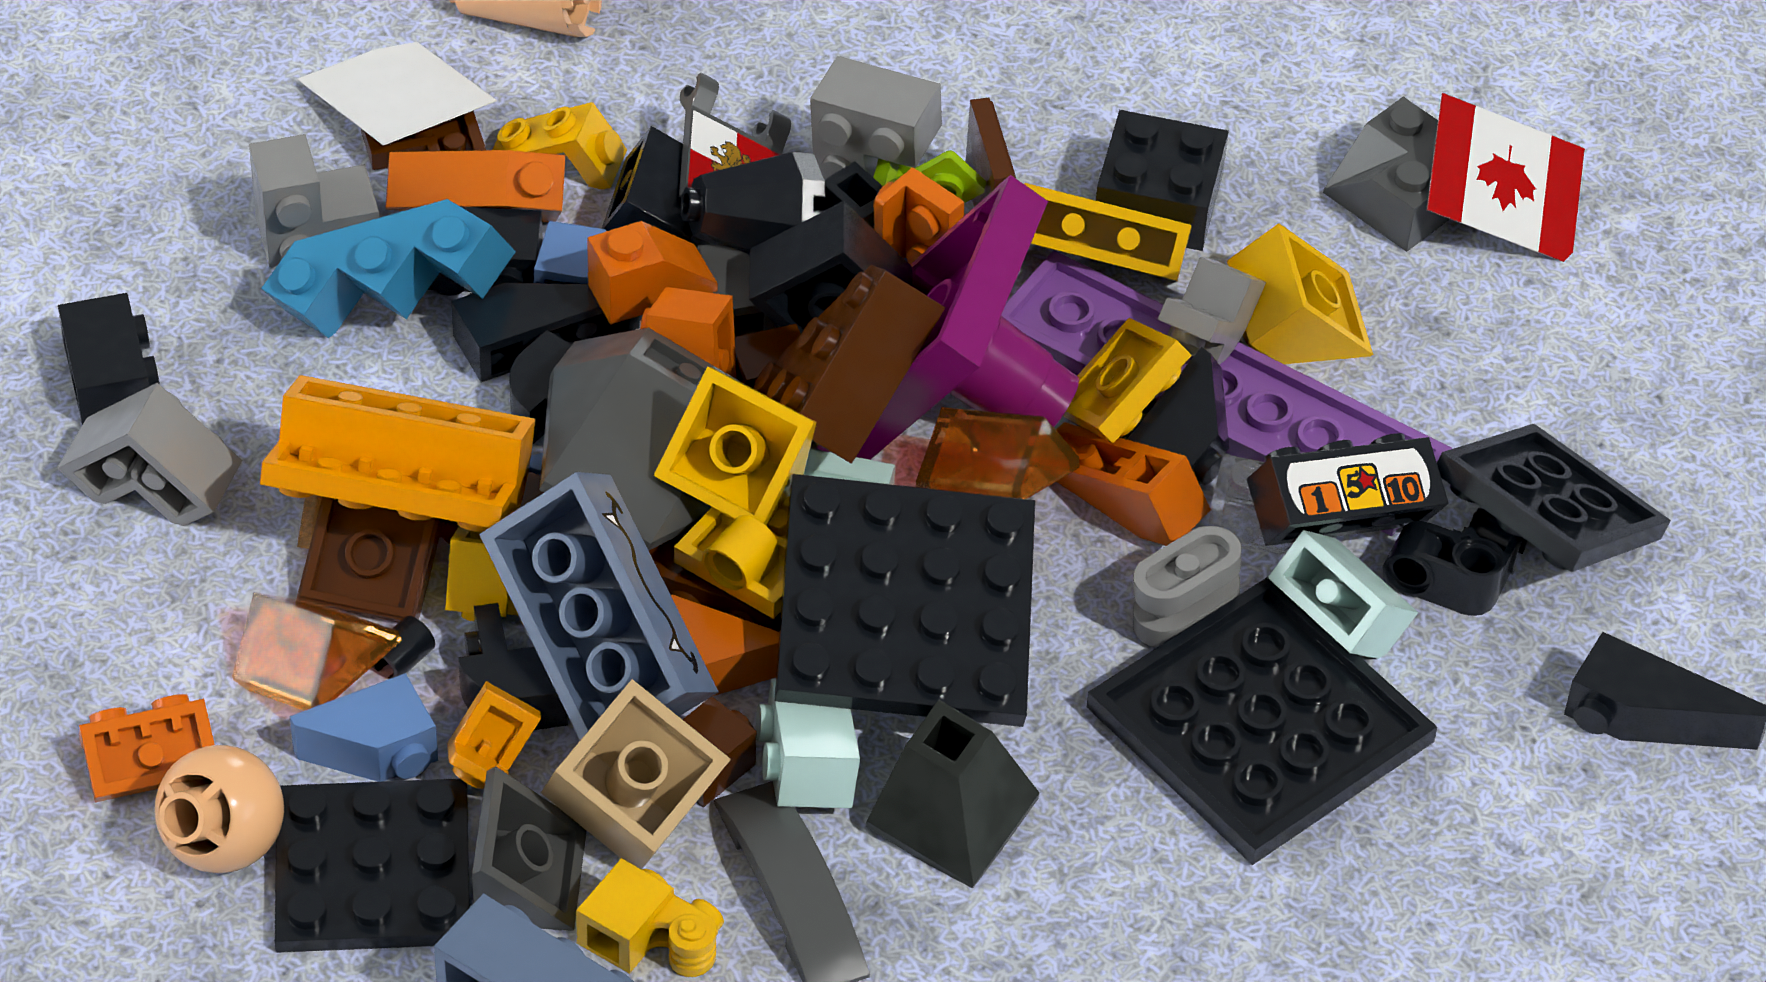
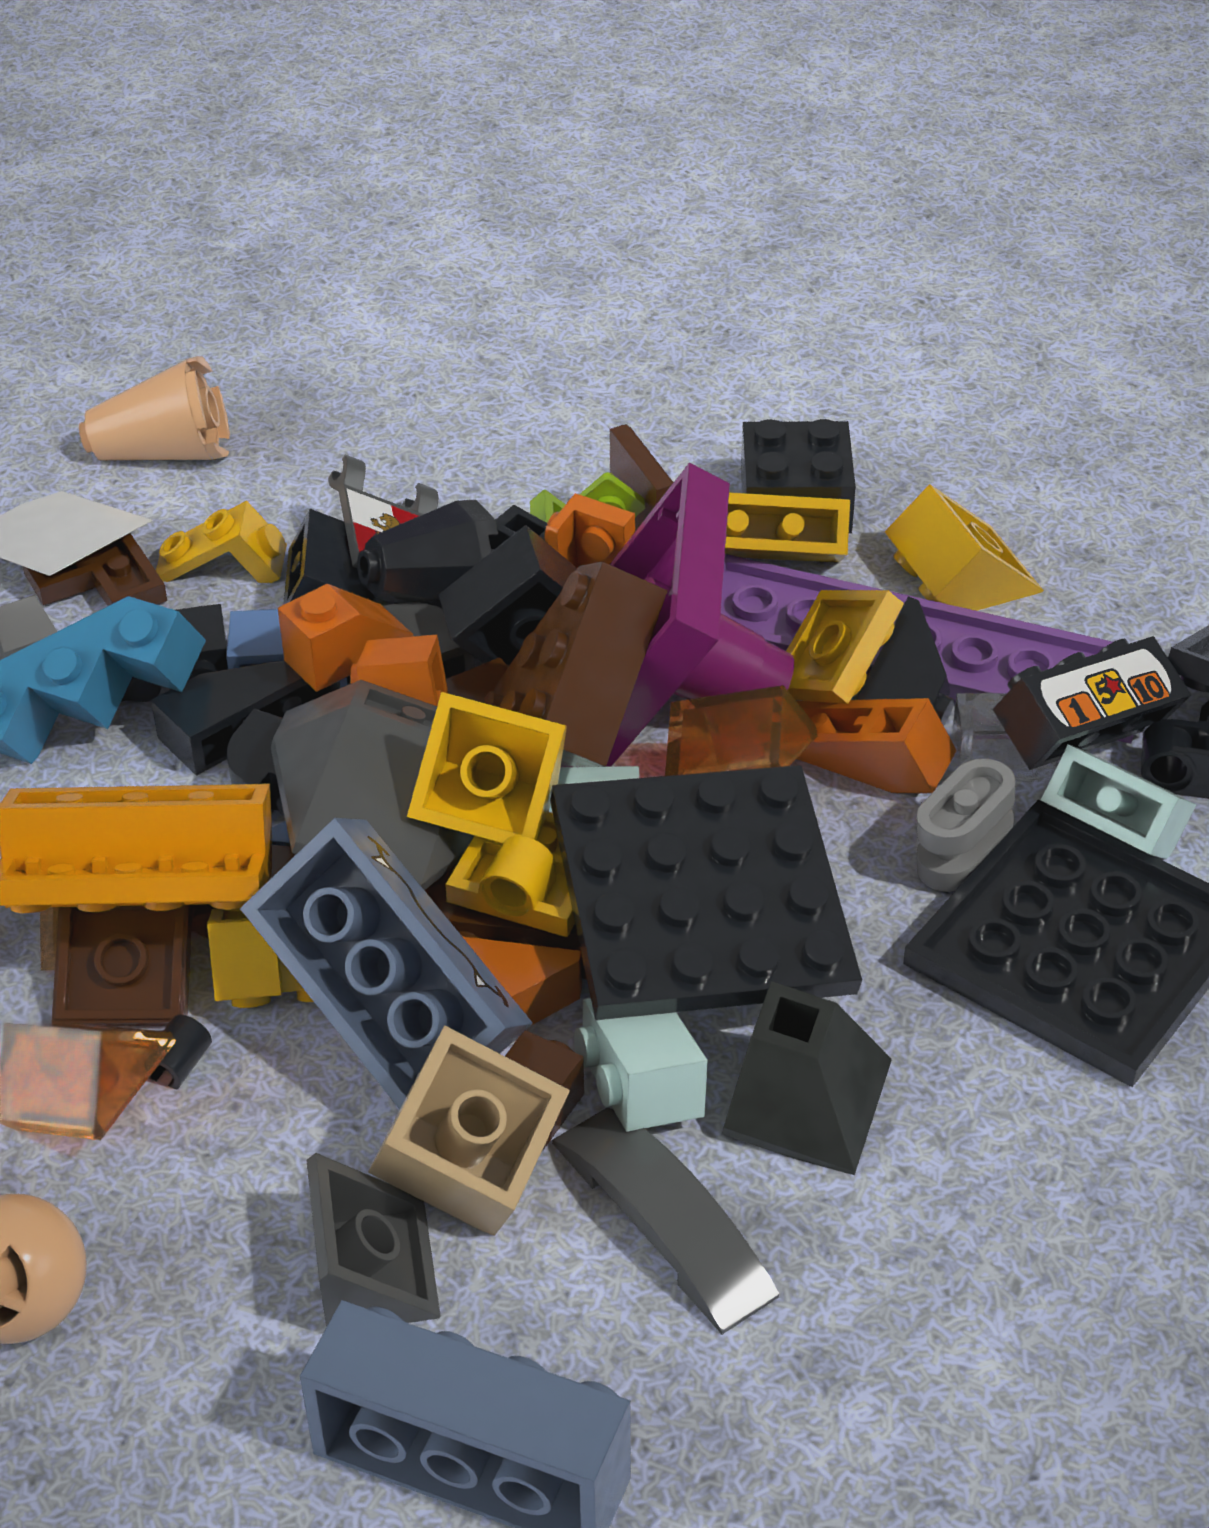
camera: 10 degrees left, 5 degrees down
(369, 732) = (162, 1147): medium blue slope -> none
(371, 864) = (197, 1296): black plate -> none
(477, 180) = (167, 580): orange slope -> none
(490, 734) = (296, 1121): light orange bracket -> none
(512, 671) = (299, 1066): black brick -> none
(639, 912) = (512, 1279): yellow brick -> none
(871, 115) = (520, 461): light grey brick -> none
(1213, 309) = (897, 560): light grey brick -> none
(1389, 175) = (1015, 433): dark grey slope -> none
(1505, 178) = (1108, 418): sticker -> none

